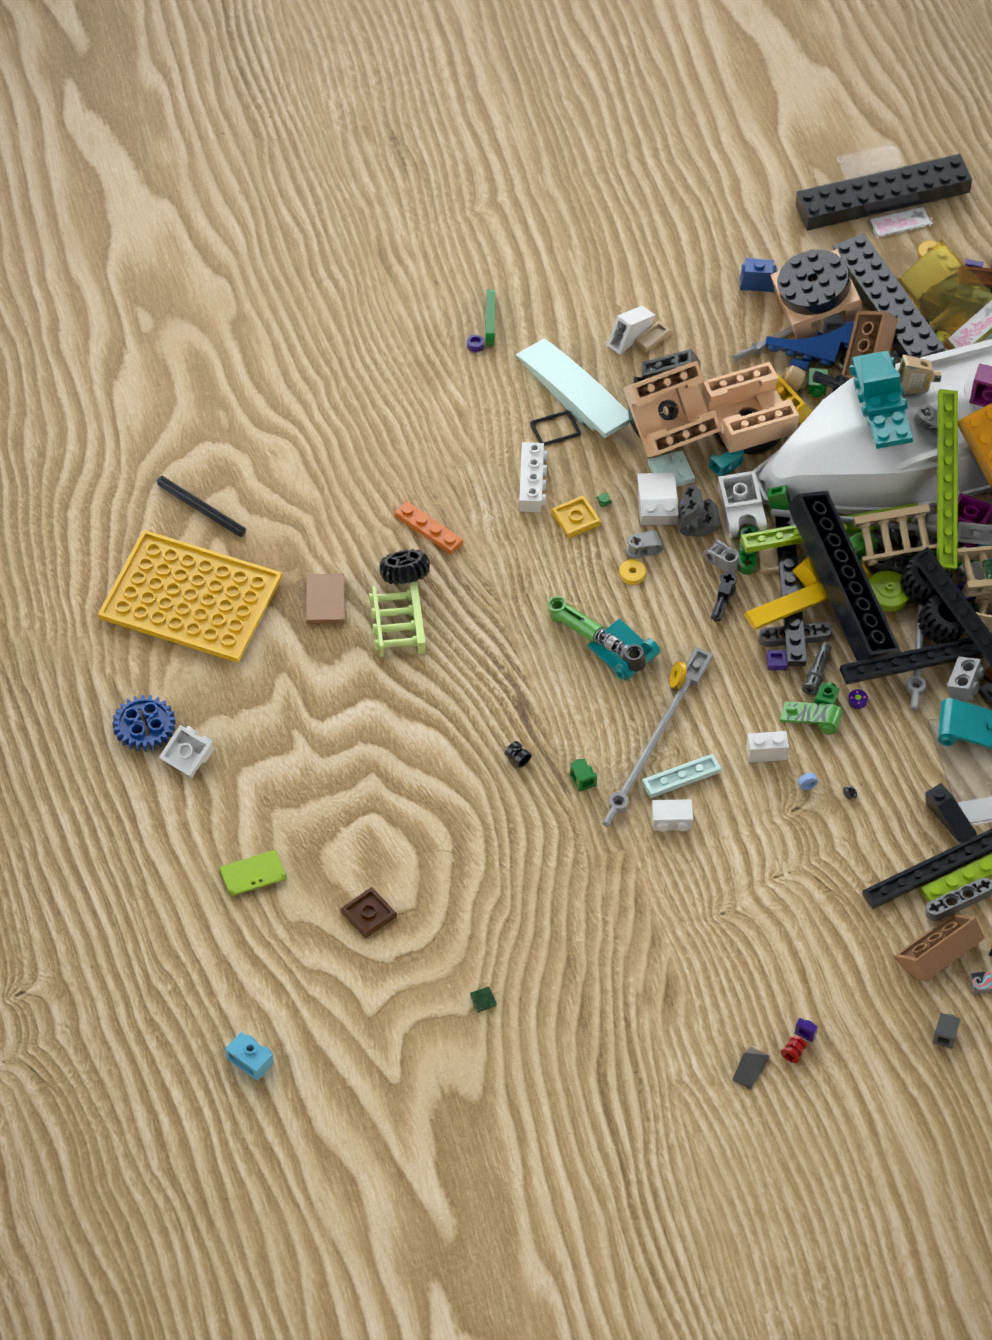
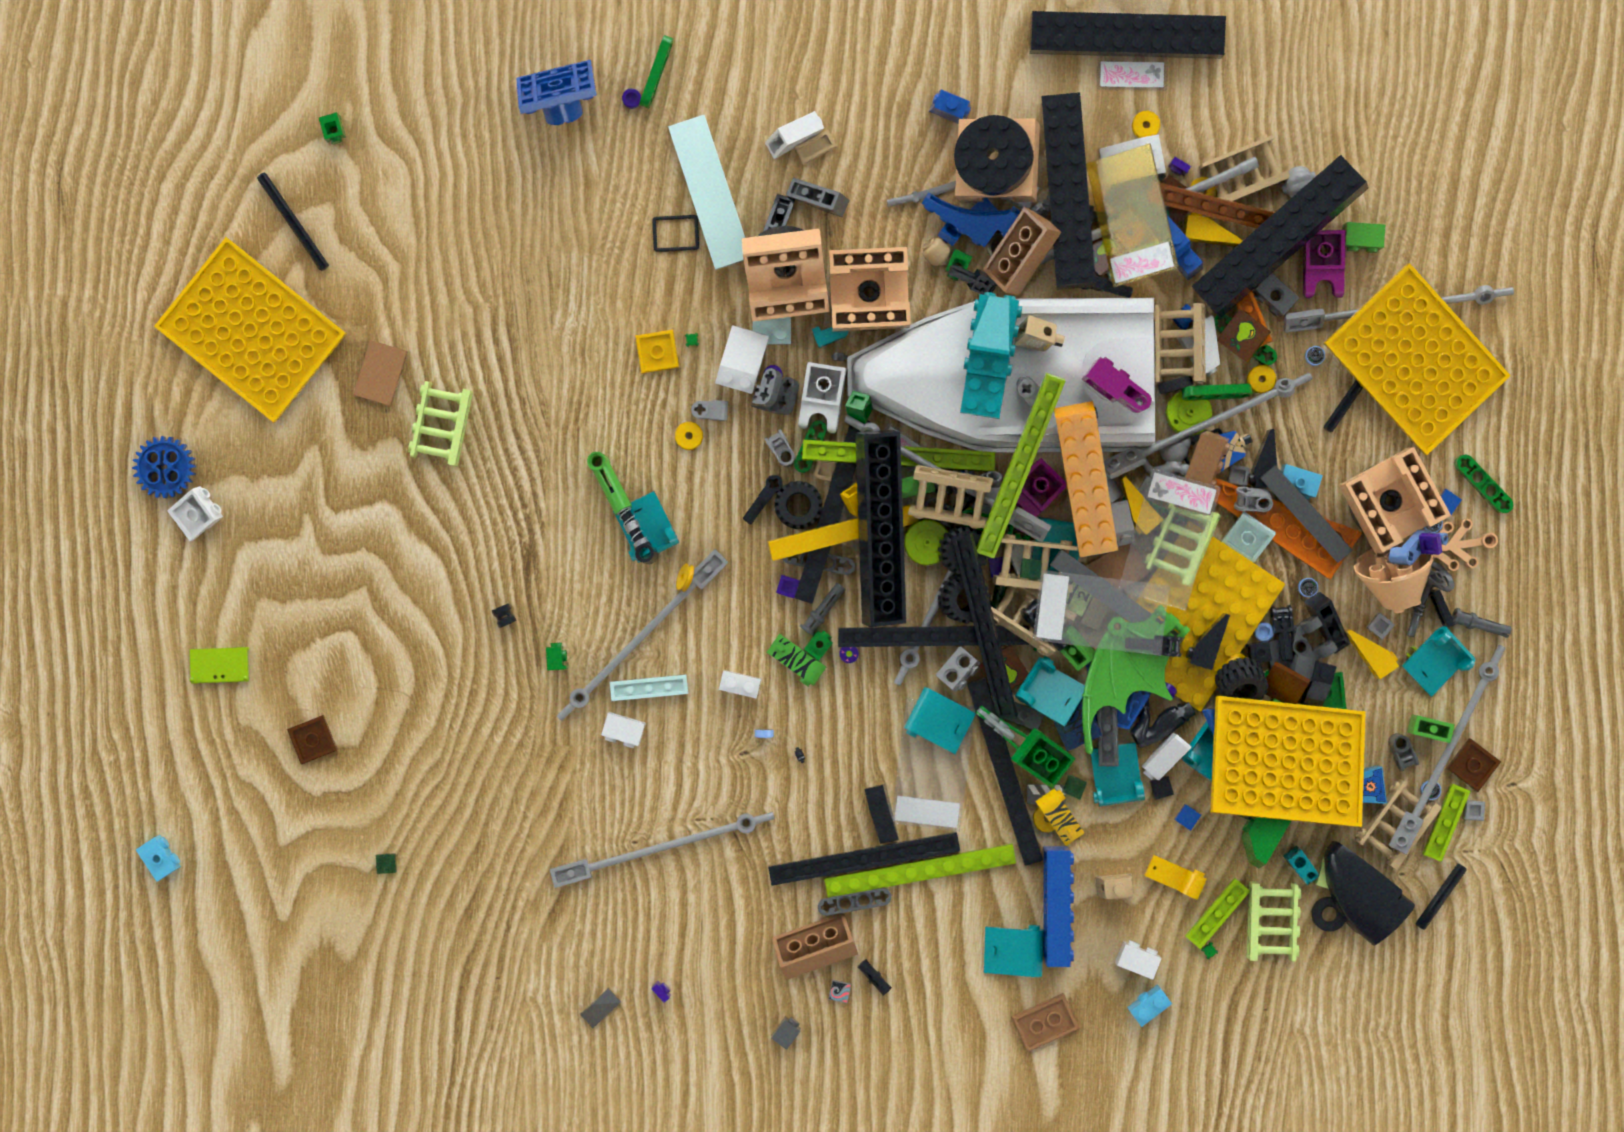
camera: 20 degrees right, 35 degrees up
(217, 428) = (329, 122): none -> green brick
(404, 566) = (463, 374): black gear -> none
(414, 346) = (557, 92): none -> blue piece
(428, 527) = (508, 318): orange plate -> none
(532, 477) = (628, 292): white brick -> none
(681, 947) = (582, 869): none -> light grey bar
(756, 579) = (810, 517): none -> black tyre
(786, 393) = (920, 281): yellow slope -> none
(794, 1049) = (643, 1006): red bush -> none

